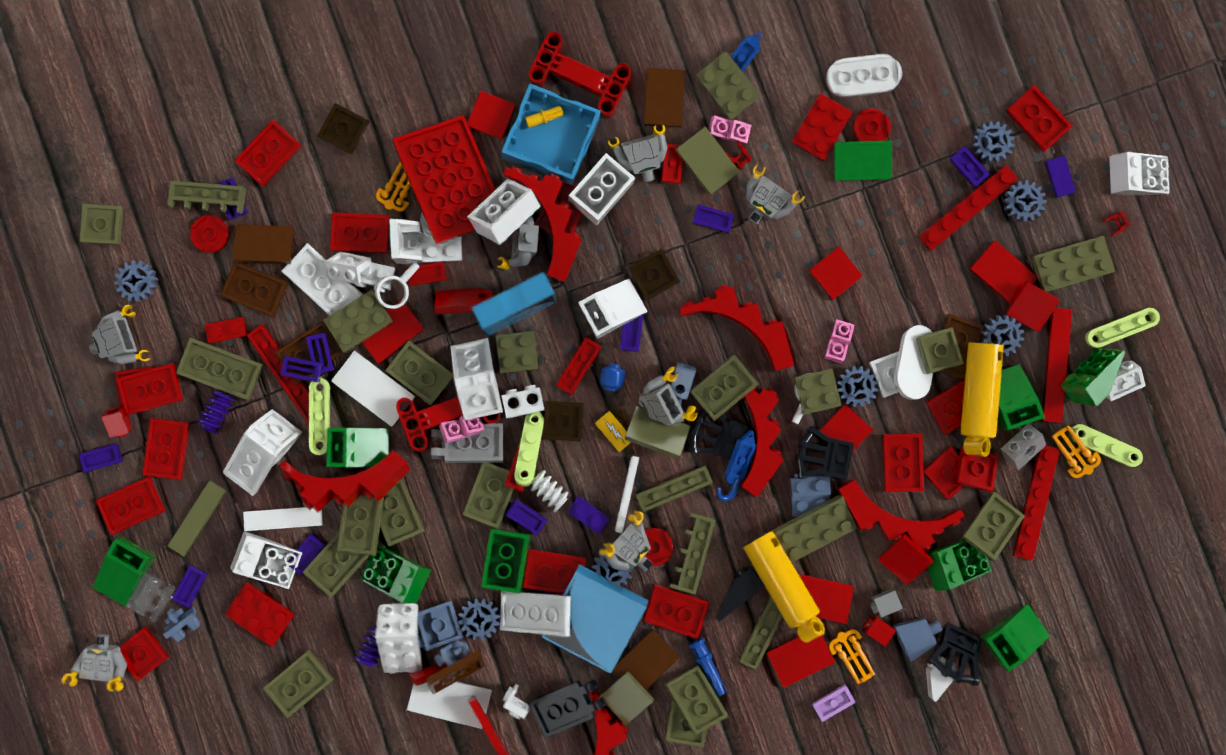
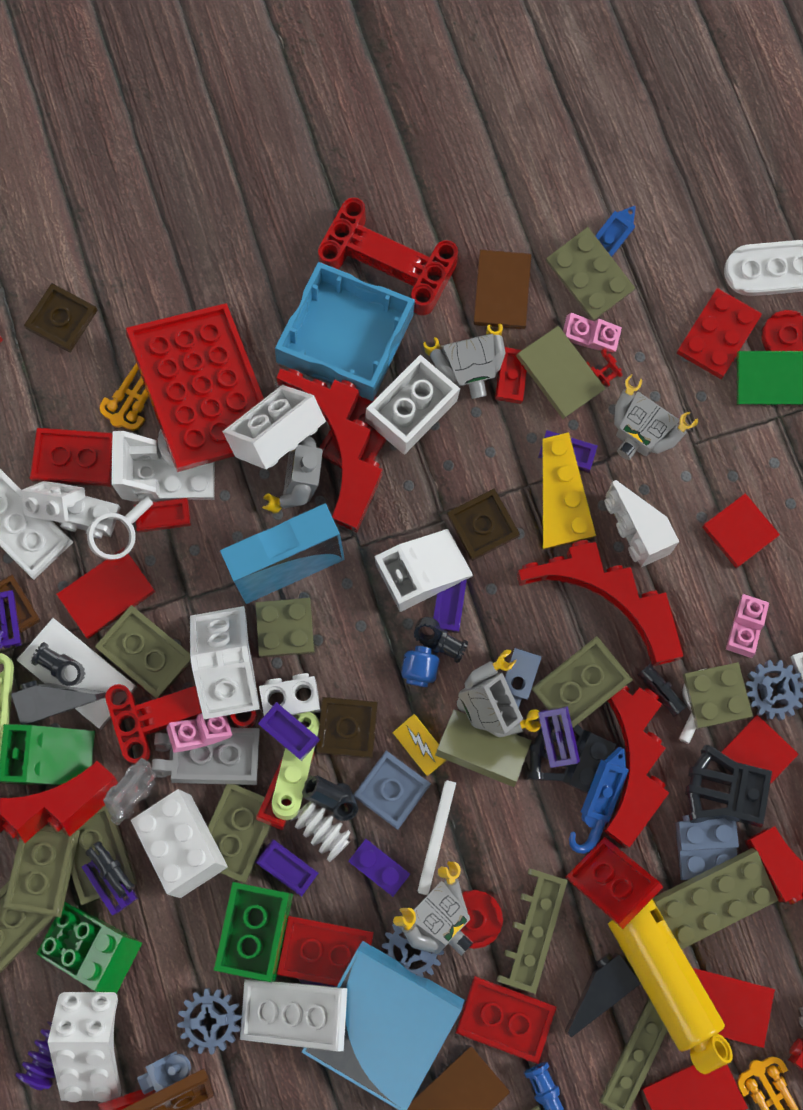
camera: 10 degrees right, 10 degrees down
(357, 408) = (49, 699): none -> slope
(358, 321) = (61, 576): olive plate -> none
(360, 384) = (57, 664): none -> black connector
(400, 535) = (87, 868): none -> dark purple tile
(407, 523) = (110, 869): none -> black pin
(419, 467) = (130, 791): none -> clear plate
(438, 626) = (146, 1030): sand blue plate -> none
(452, 504) = (179, 843): none -> white brick
(460, 300) = (200, 550): red tile -> none
(491, 115) = (264, 306): red tile -> none
(523, 426) = (289, 731): none -> dark purple tile
(544, 116) = (336, 308): yellow axle -> none
(555, 469) = (331, 796): none -> black piece
(578, 366) = (372, 650): red tile -> none
(595, 462) = (392, 790): none -> sand blue tile
(625, 358) = (440, 640): none -> black connector
(674, 488) = (506, 832): olive tile -> none
(706, 408) = (543, 716): none -> dark purple tile
(711, 257) = (563, 496): none -> yellow wing
(746, 520) = (614, 882): none -> red tile
(767, 275) = (642, 525): none -> white slope
(780, 388) = (662, 690): none -> black pin

